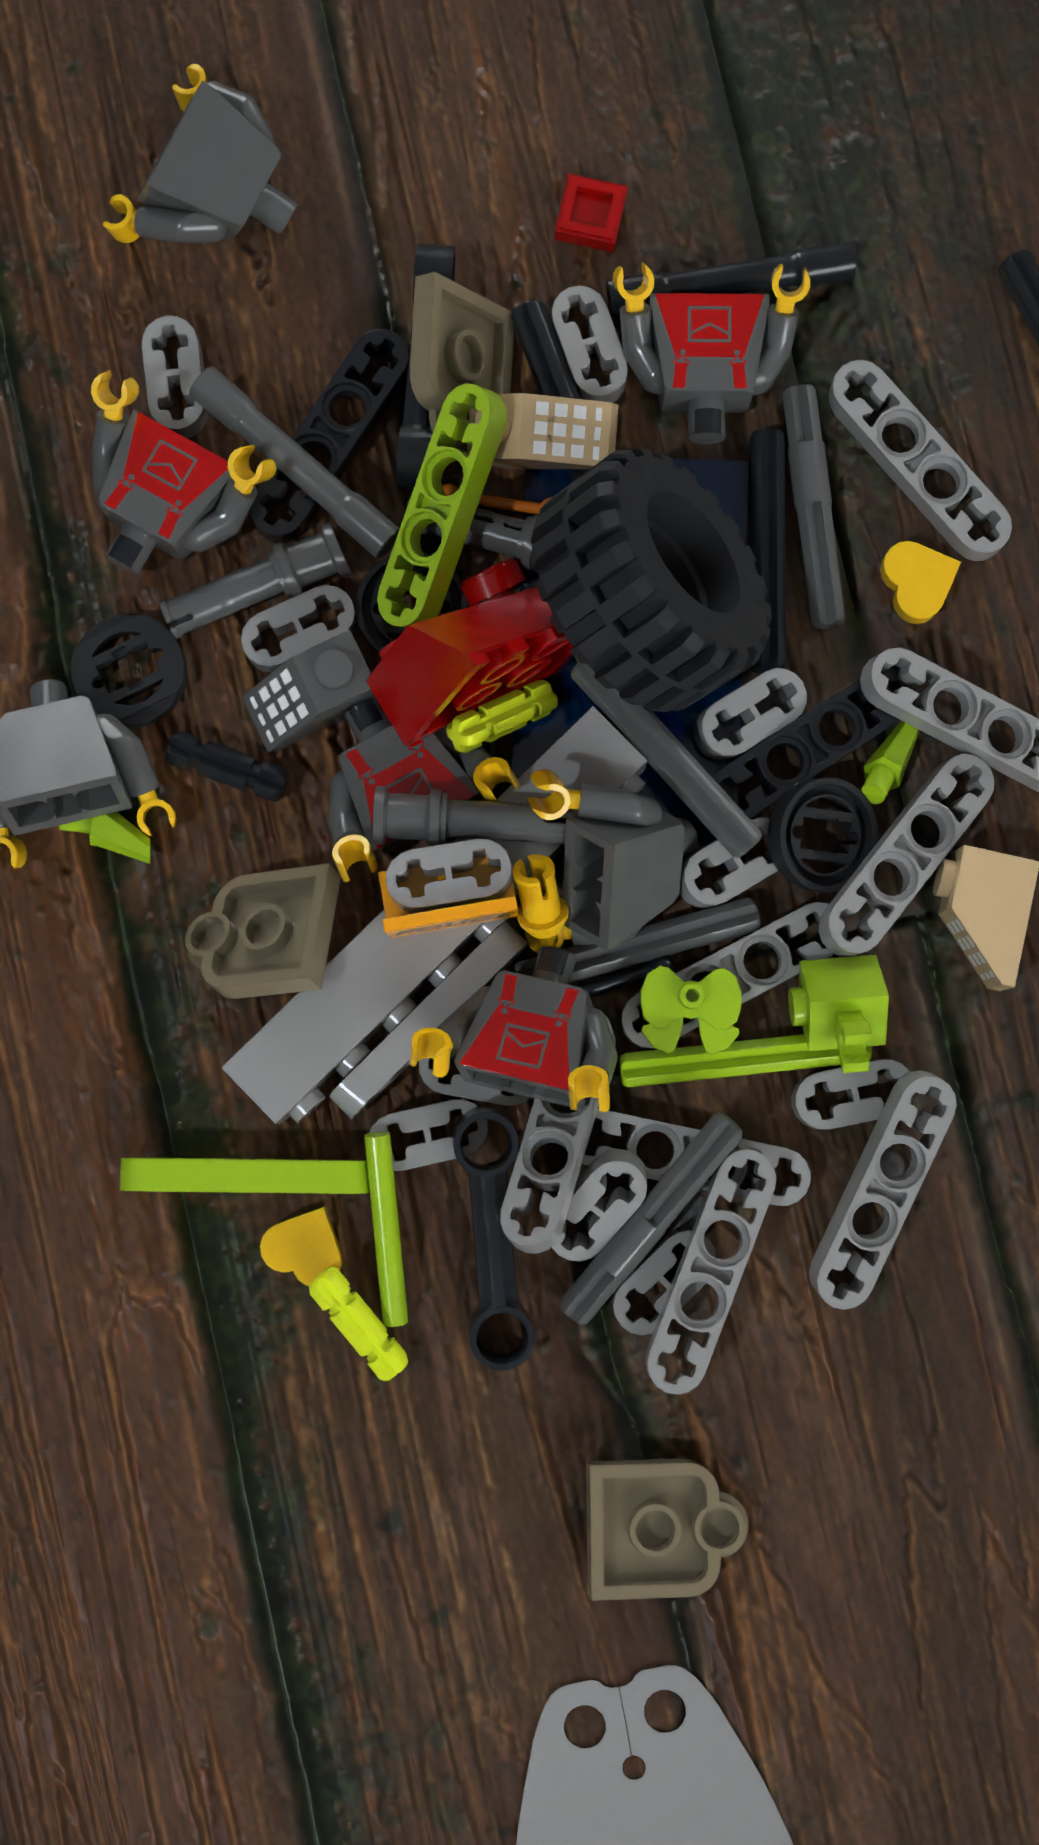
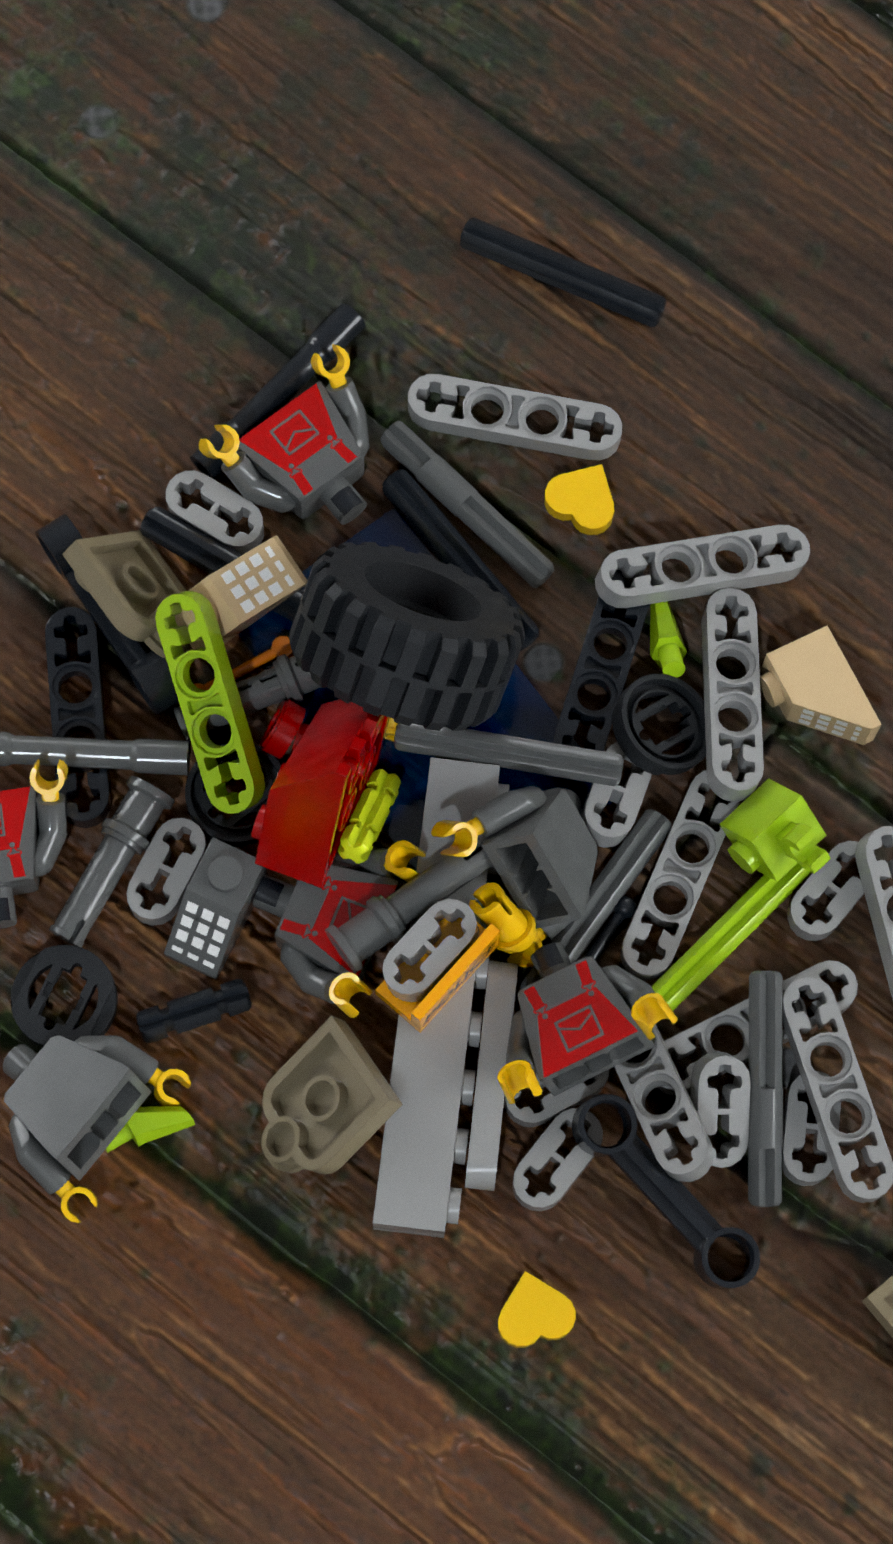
camera: 40 degrees left, 10 degrees down
(244, 1175) = (449, 1293): lime beam -> none
(358, 1323) = (619, 1333): neon yellow axle -> none
(386, 1228) = (584, 1248): lime bar -> none
(591, 213) = (139, 419): red tile -> none
(668, 1000) = (652, 922): lime piece -> none
(757, 726) = (553, 685): light grey beam -> none

